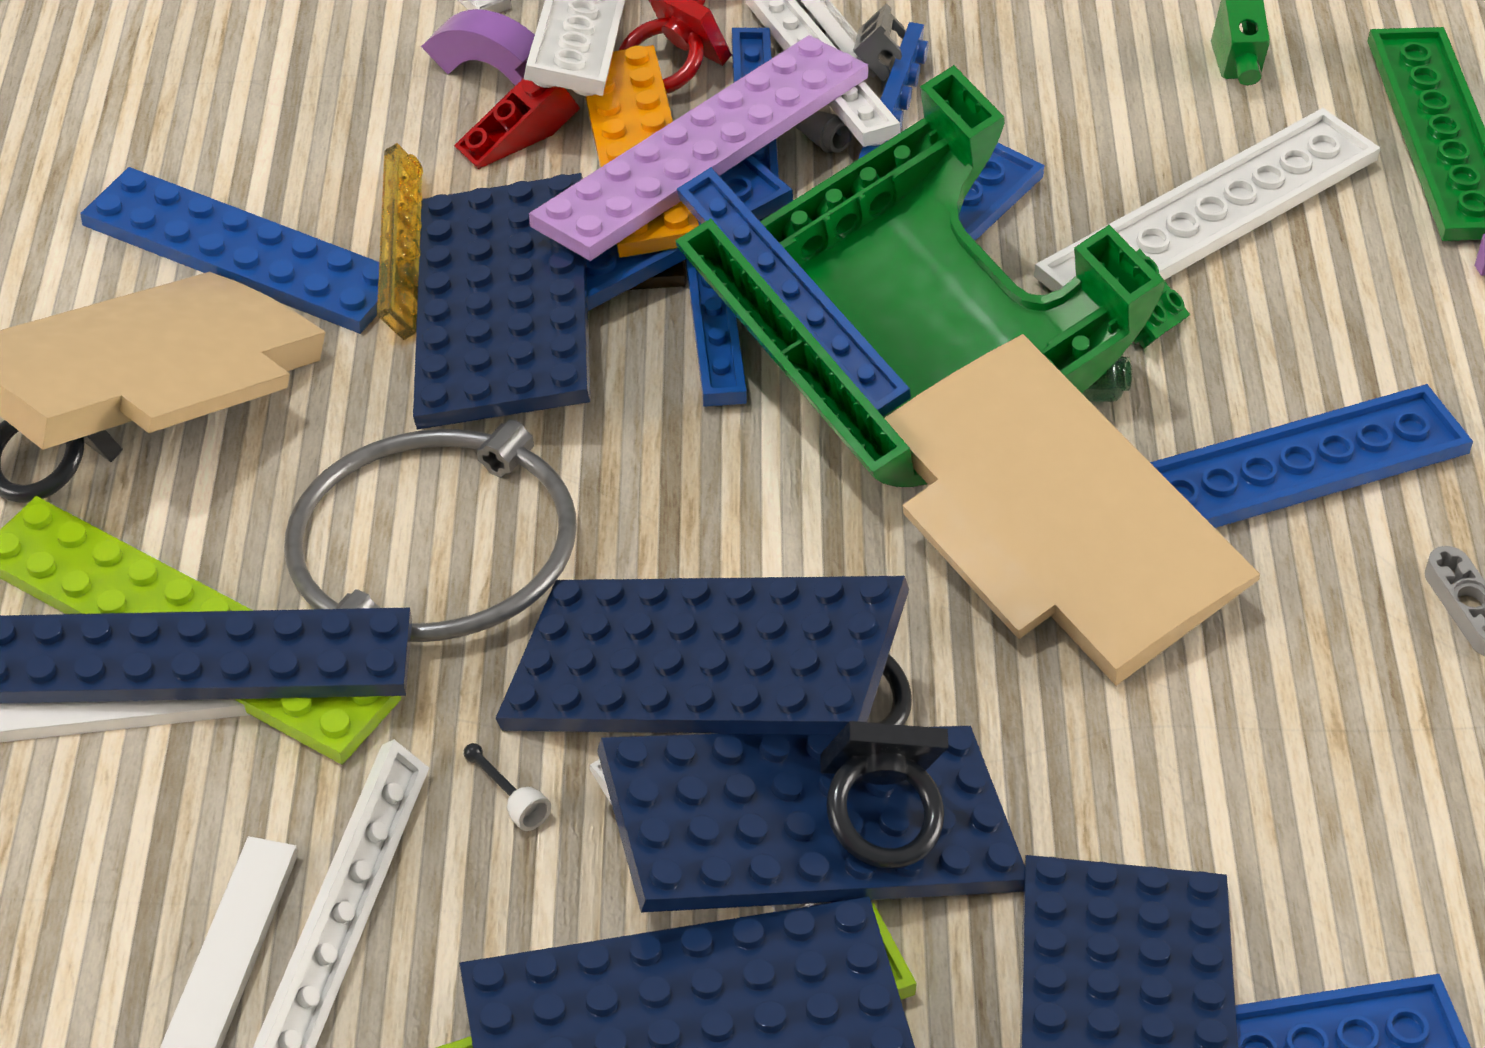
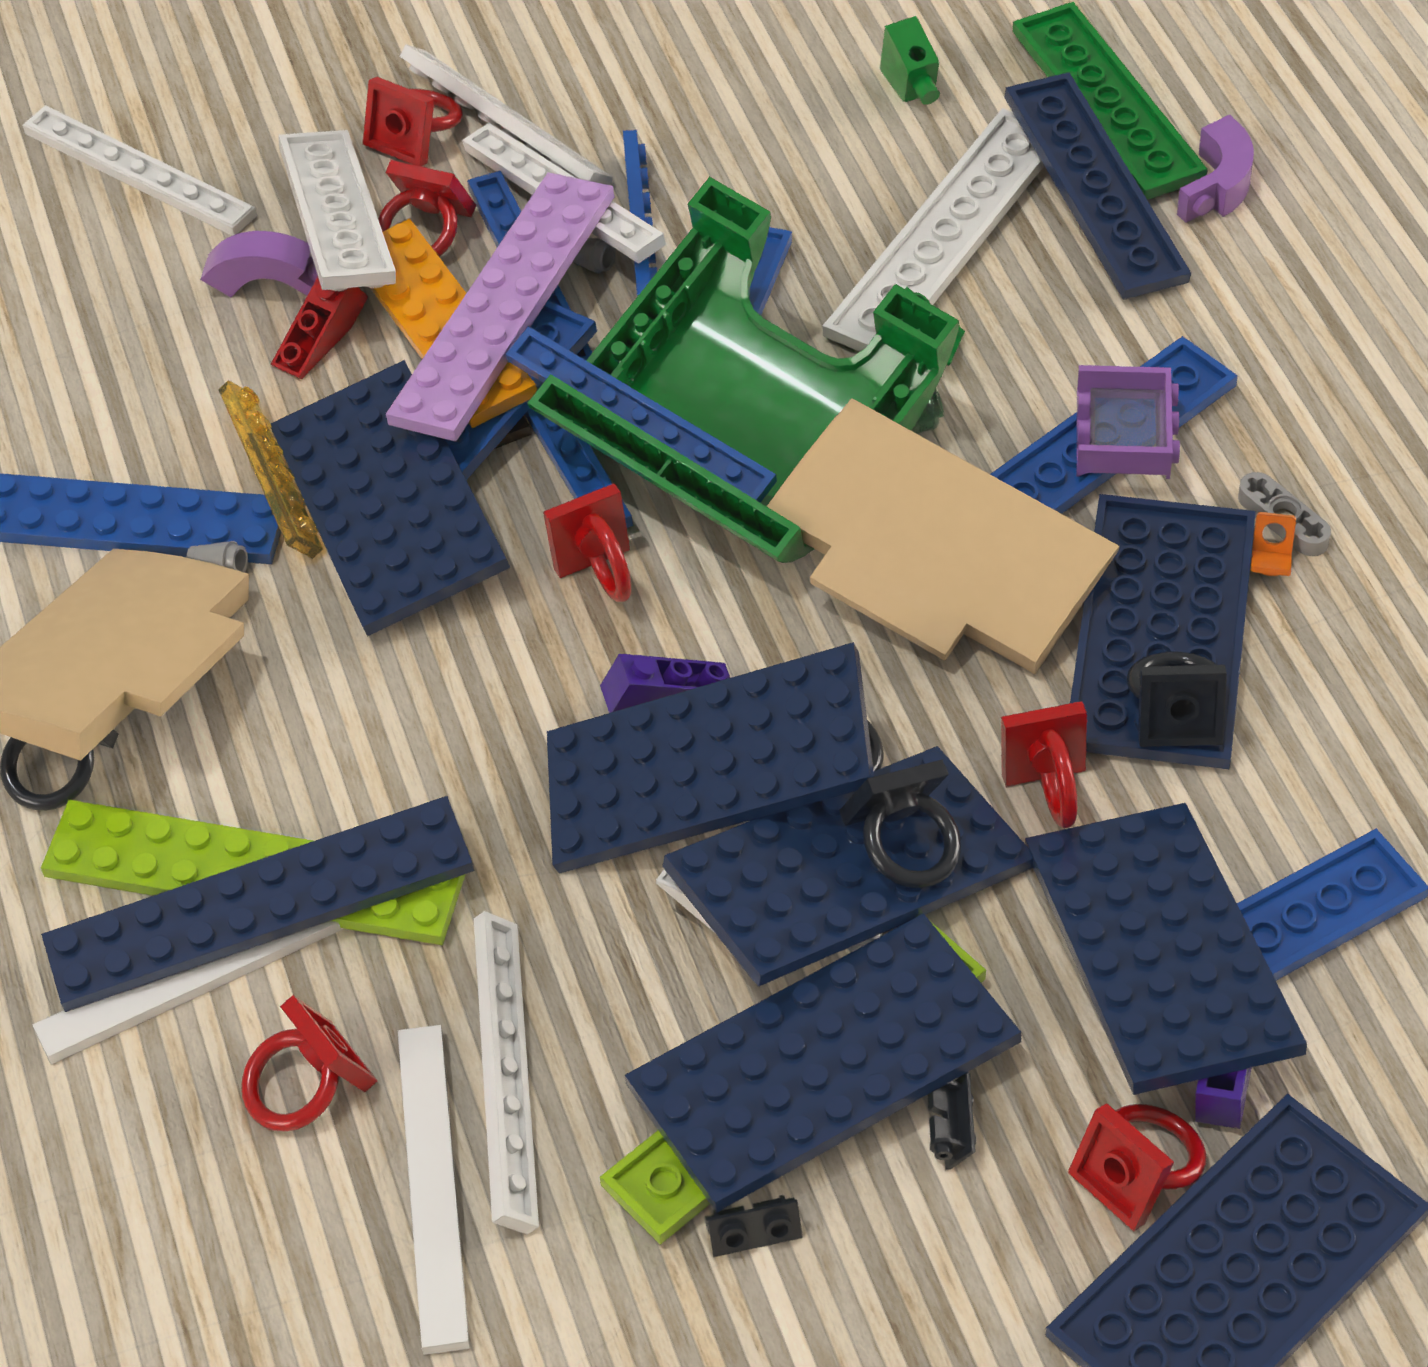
camera: 15 degrees left, 5 degrees up
(157, 825) = (323, 1049): none -> red tile
(311, 307) = (221, 554): none -> light grey cone
(500, 455) = (448, 636): flat silver piece -> none
(525, 805) = (611, 929): white hinge -> none
(681, 554) = (648, 678): none -> dark purple slope
(689, 394) = (588, 534): none -> red tile
(874, 41) = (602, 157): dark grey hinge -> none
(1085, 762) = (1047, 748): none -> red tile
(1259, 758) = (1179, 699): none -> black tile
(1276, 687) = (1167, 590): none -> dark blue plate
(1324, 449) = (1126, 420): none -> medium lavender window
(1394, 211) = (1097, 186): none -> dark blue plate
(1437, 643) = (1268, 557): none -> orange bracket

